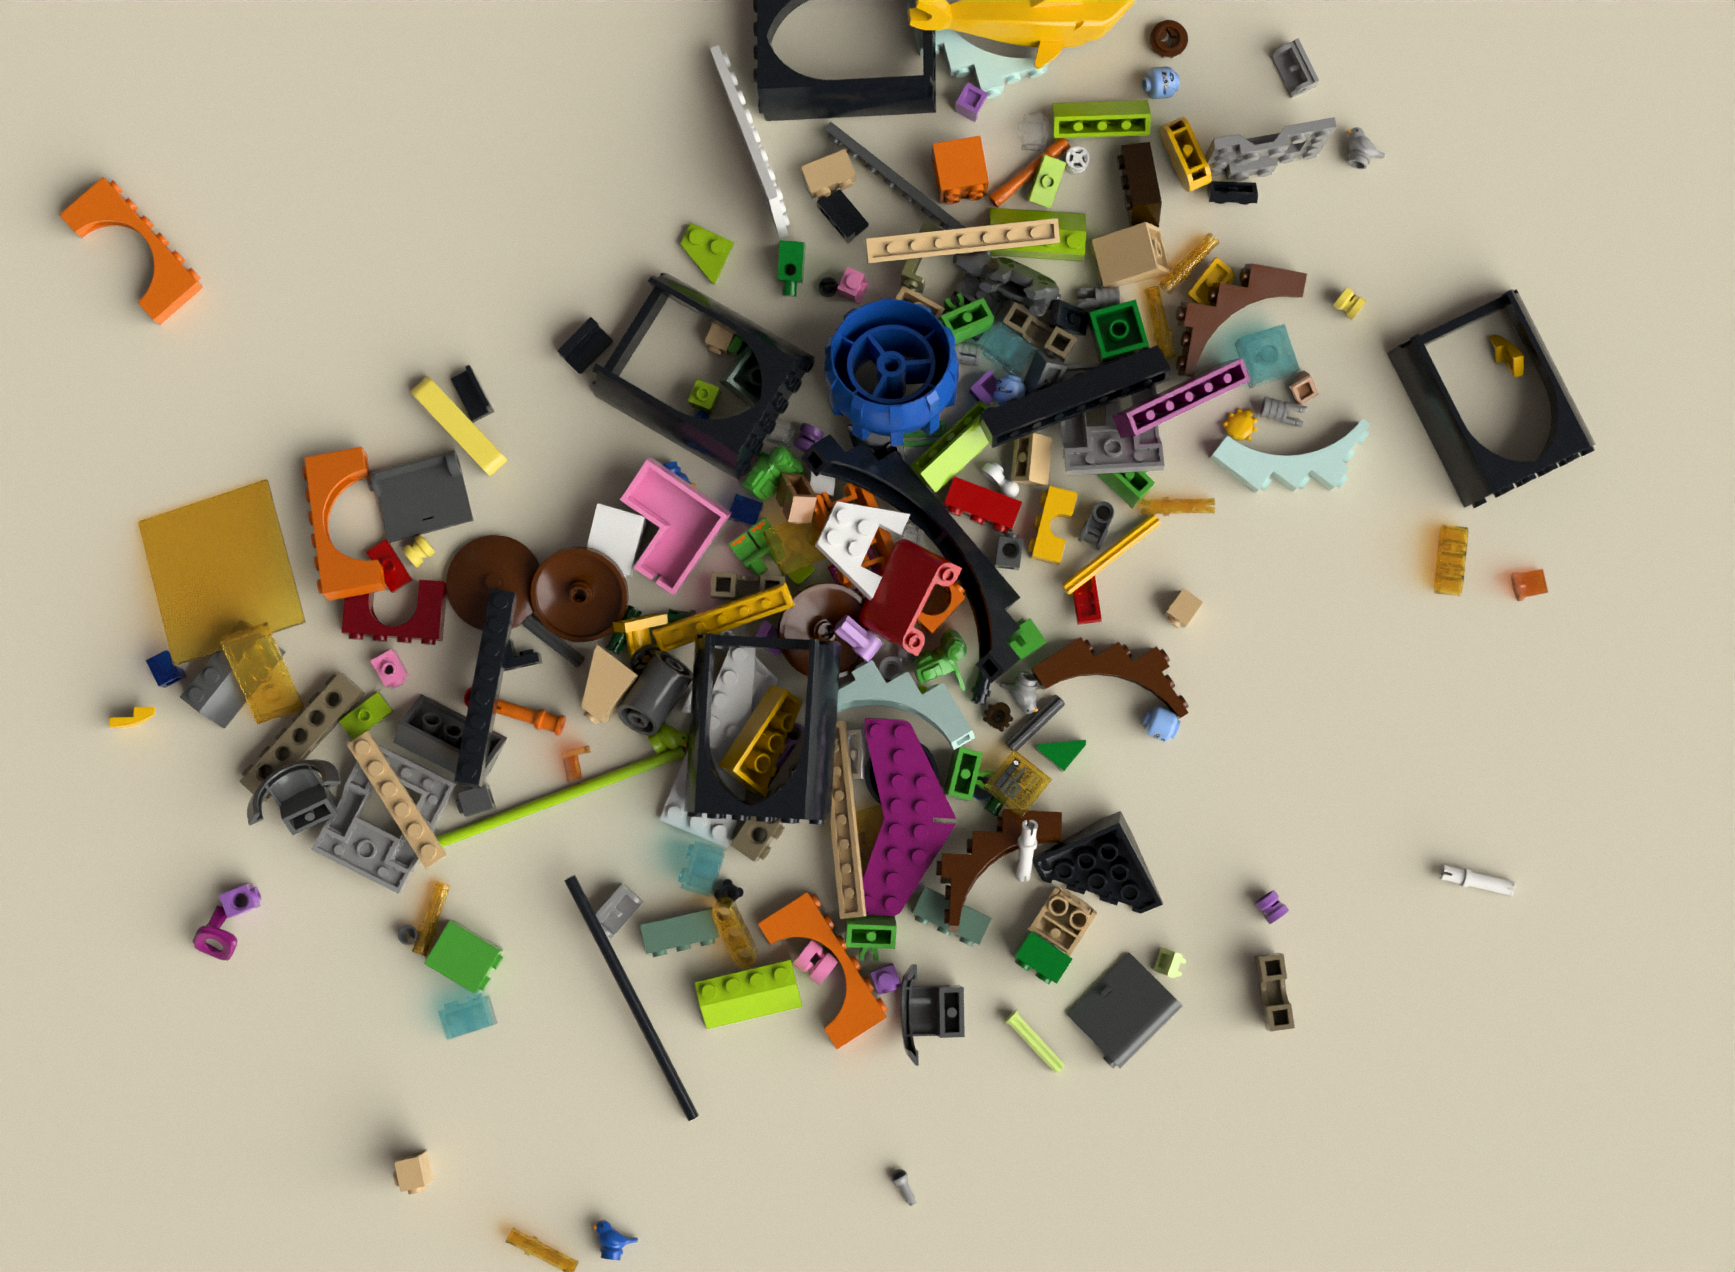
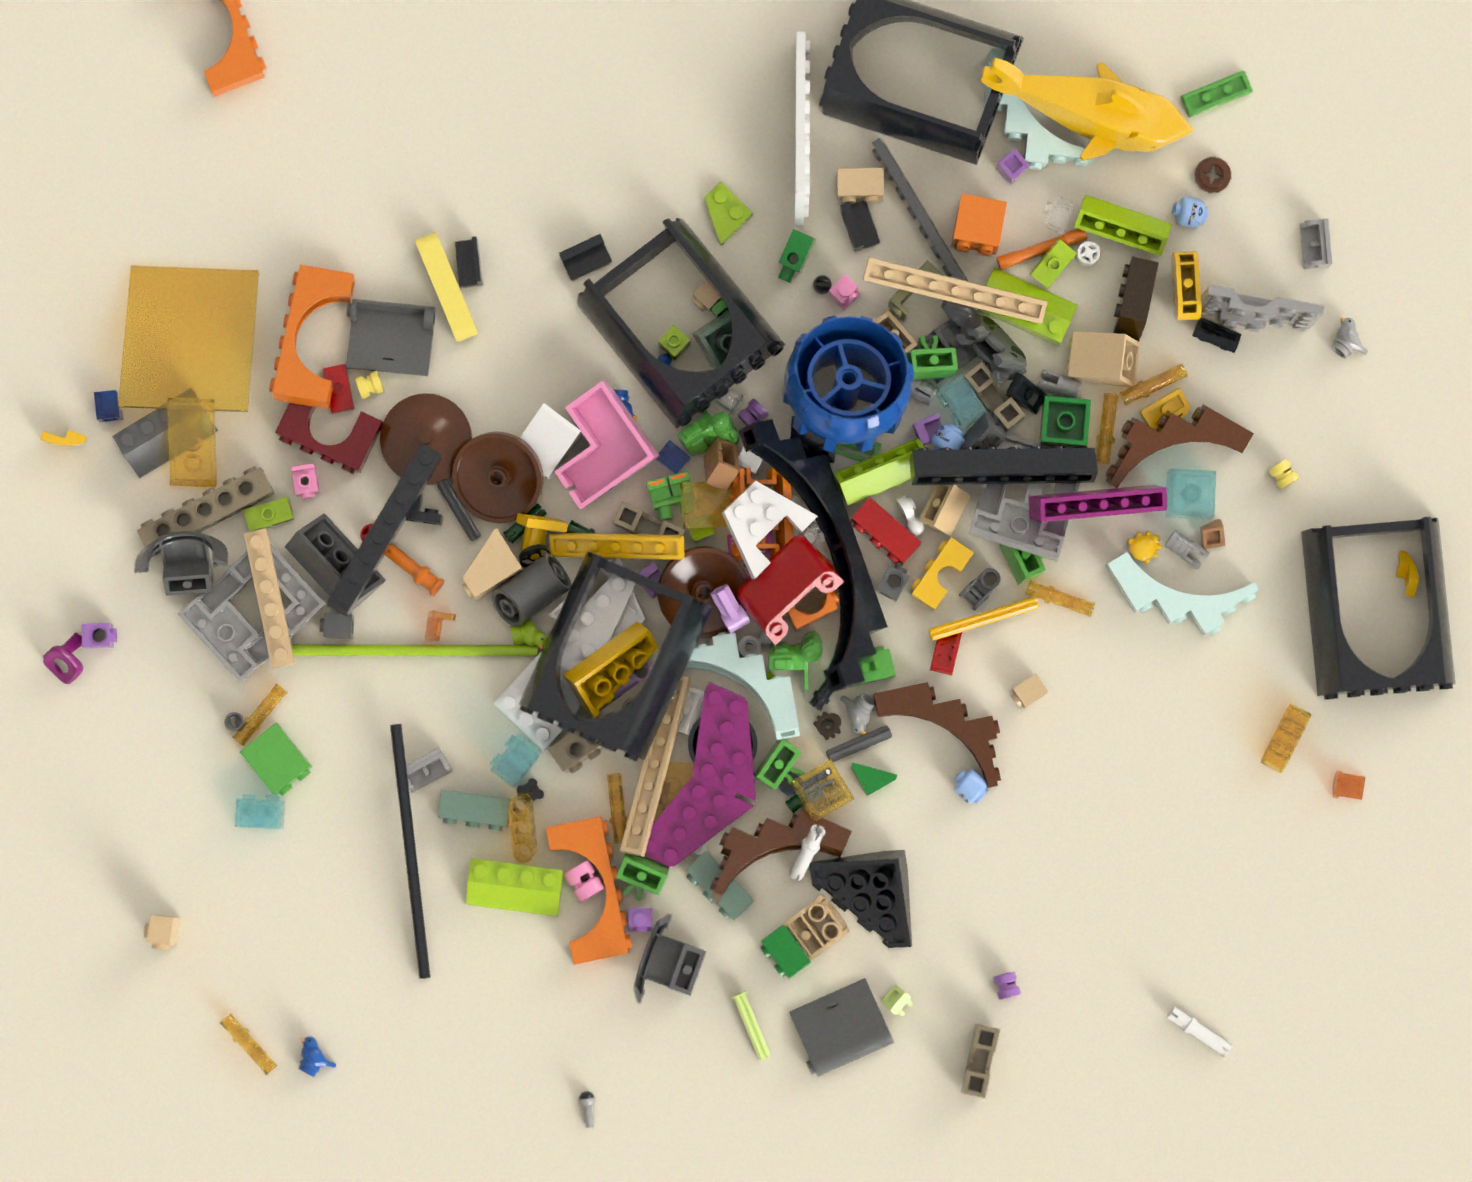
camera: 20 degrees right, 0 degrees up
(820, 876) = (616, 799): none -> clear yellow pin

